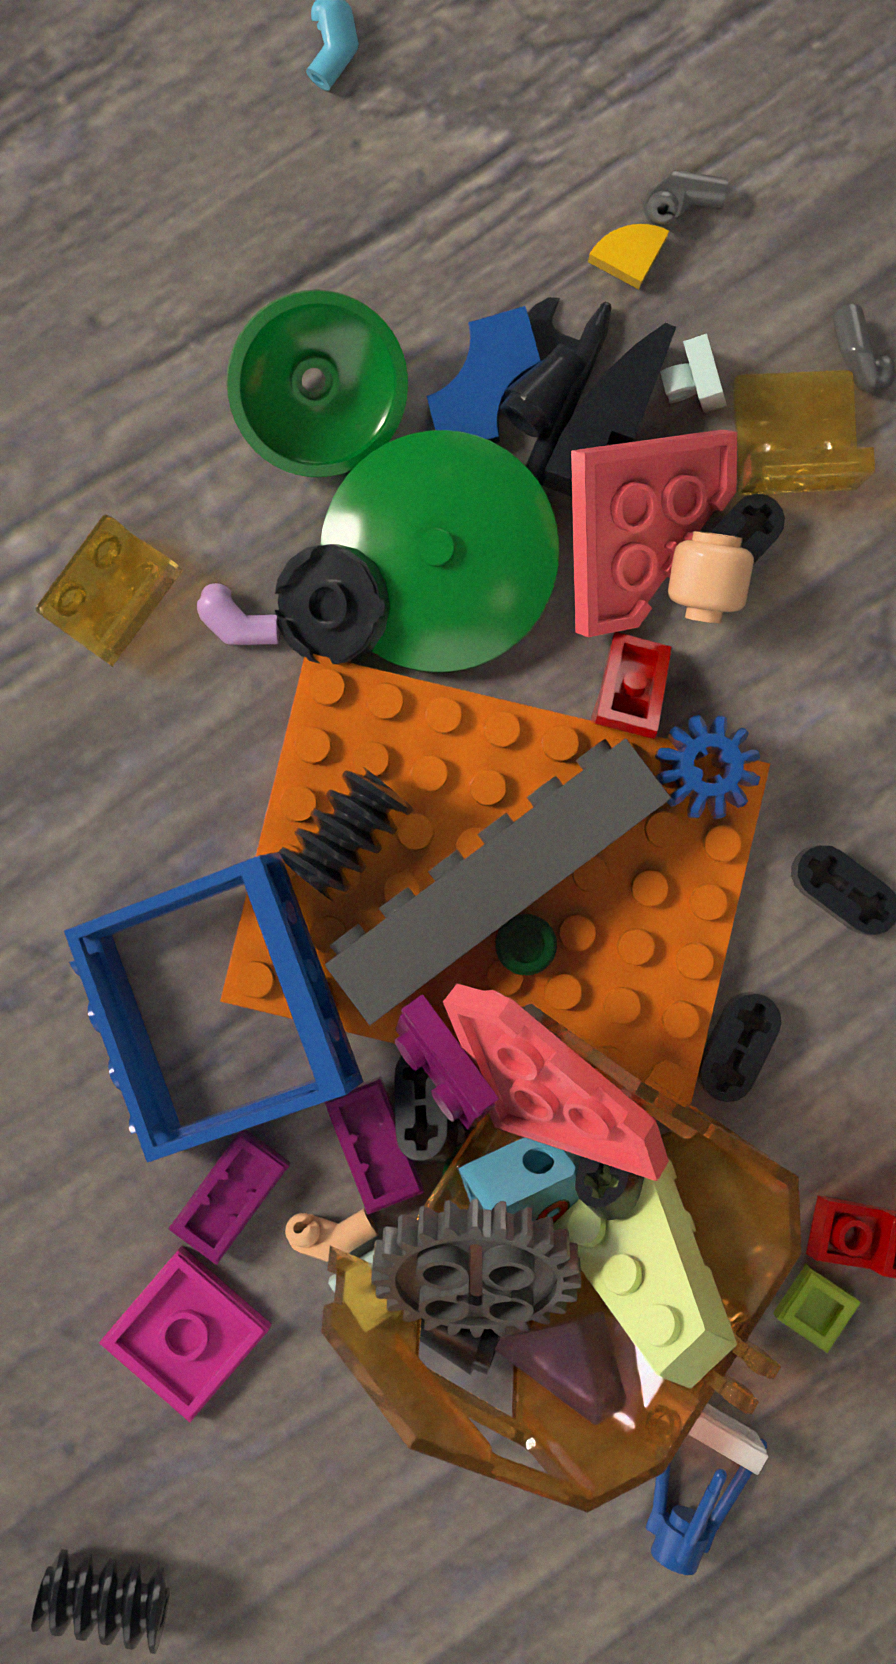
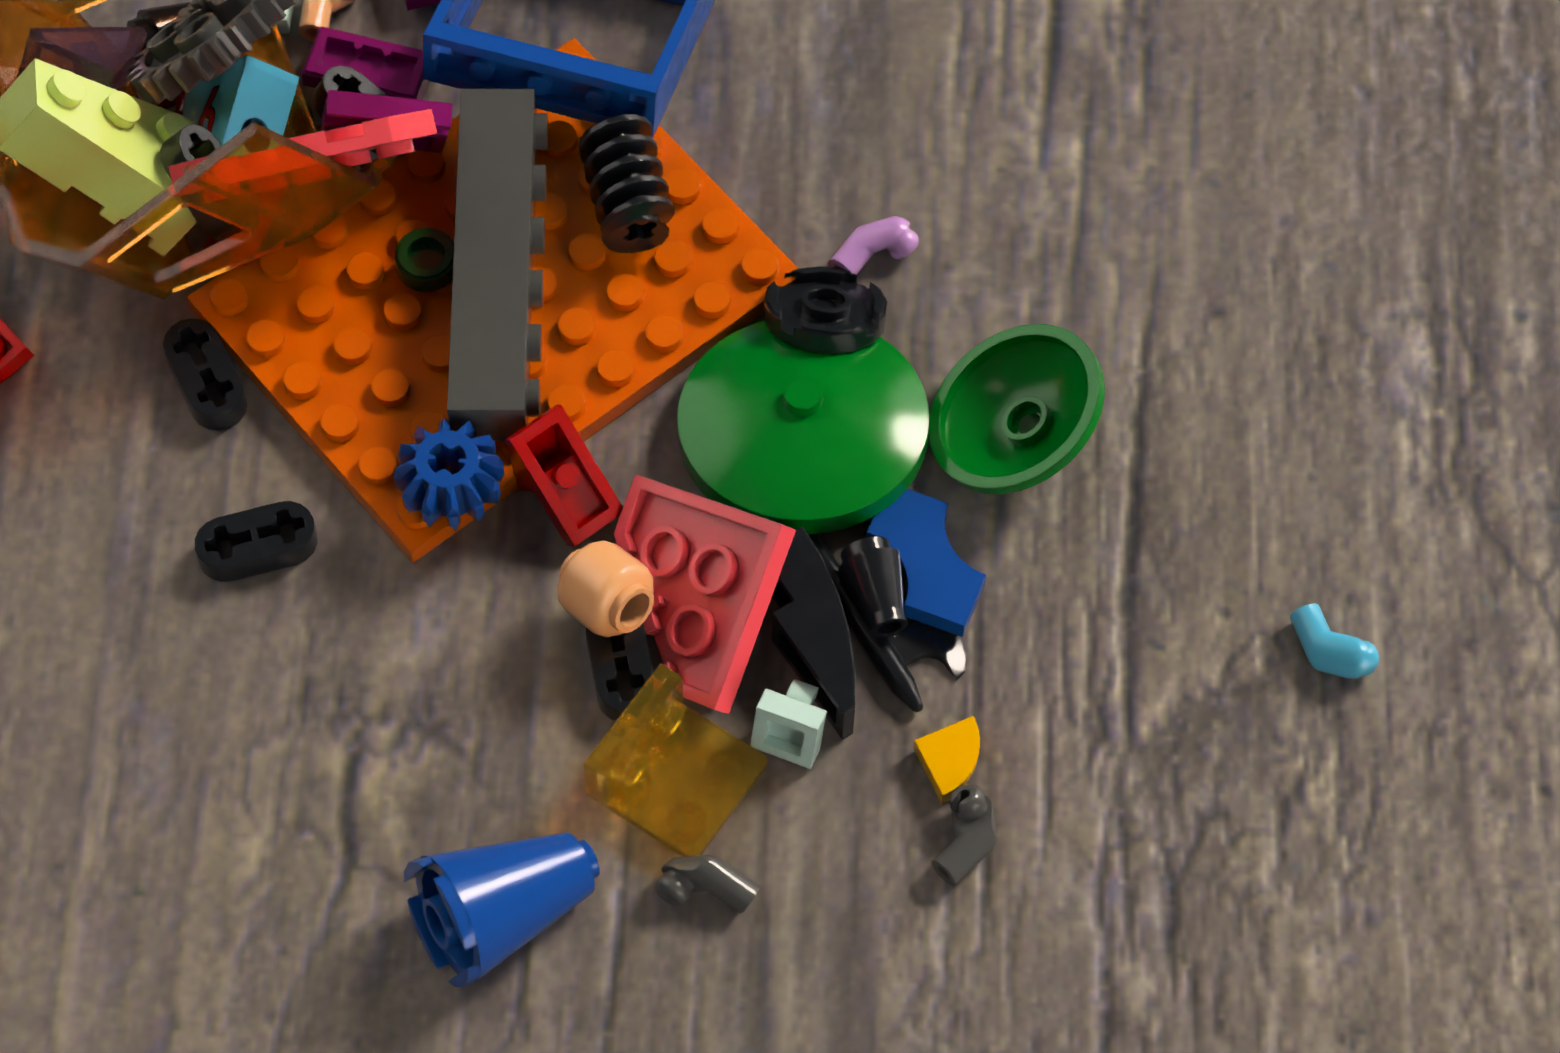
camera: 125 degrees right, 25 degrees down
(108, 589) = (970, 165): clear yellow bracket -> none

